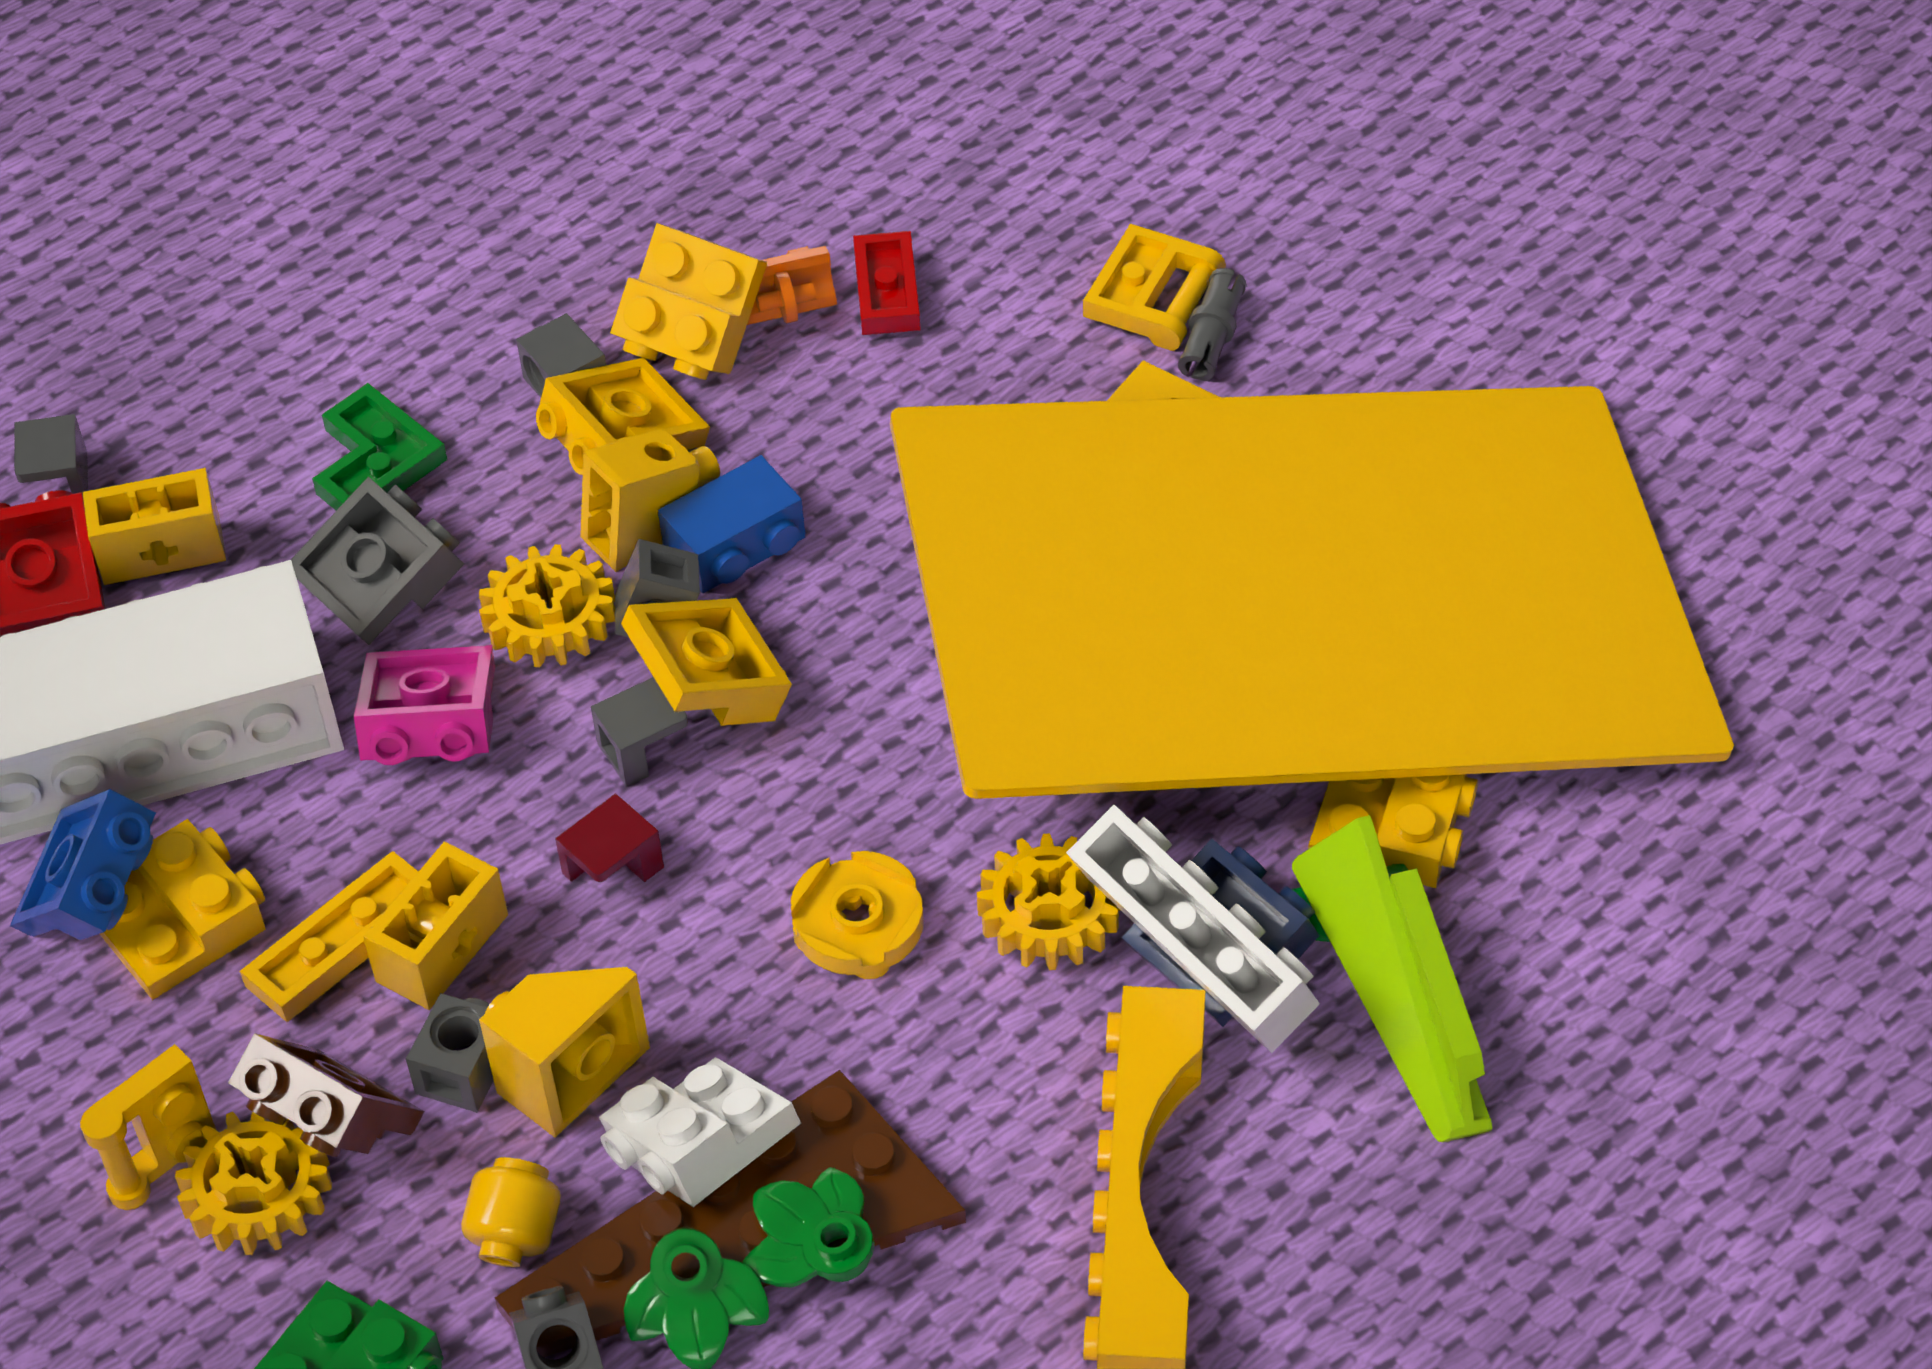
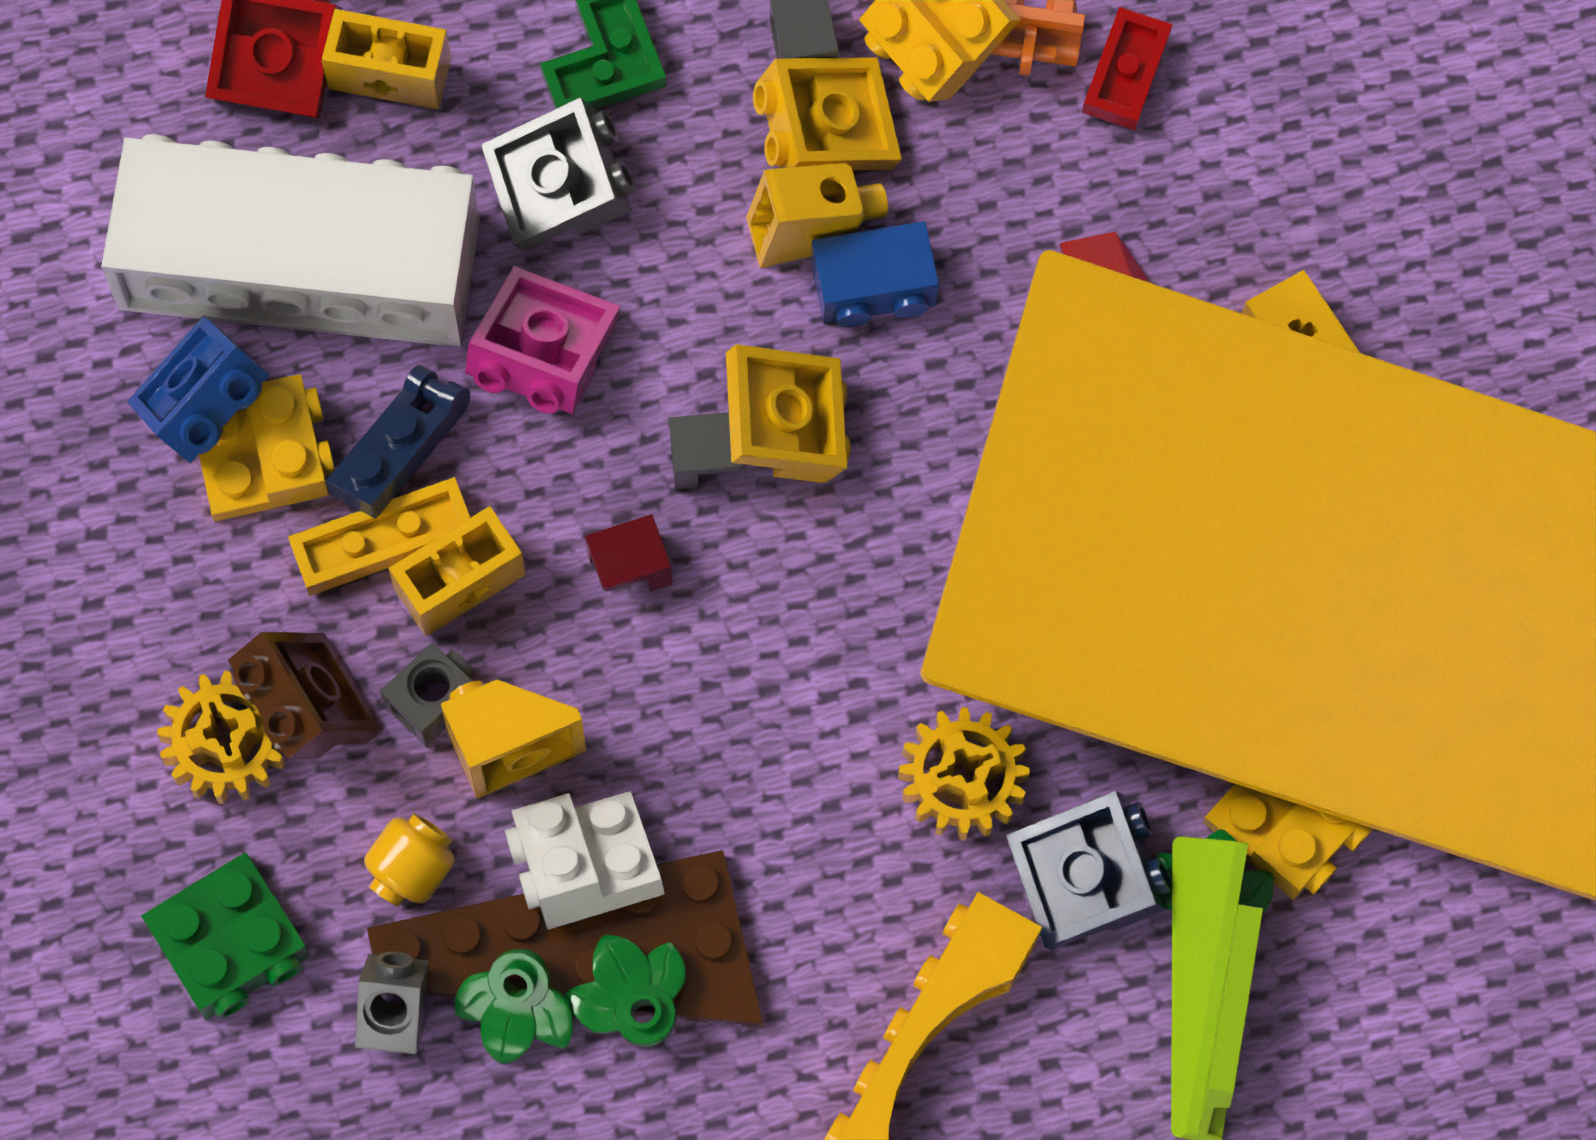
camera: 20 degrees right, 20 degrees up
(167, 1115) = (175, 658): yellow plate -> none
(318, 844) = (398, 442): none -> dark blue plate
(517, 612) = (704, 292): yellow gear -> none
(656, 576) = (776, 317): dark grey brick -> none
(863, 946) = (810, 676): yellow plate -> none
(1138, 275) = (1350, 164): yellow plate -> none
(1185, 920) = (1053, 874): white brick -> none
(1212, 324) = (1393, 245): dark grey pin -> none

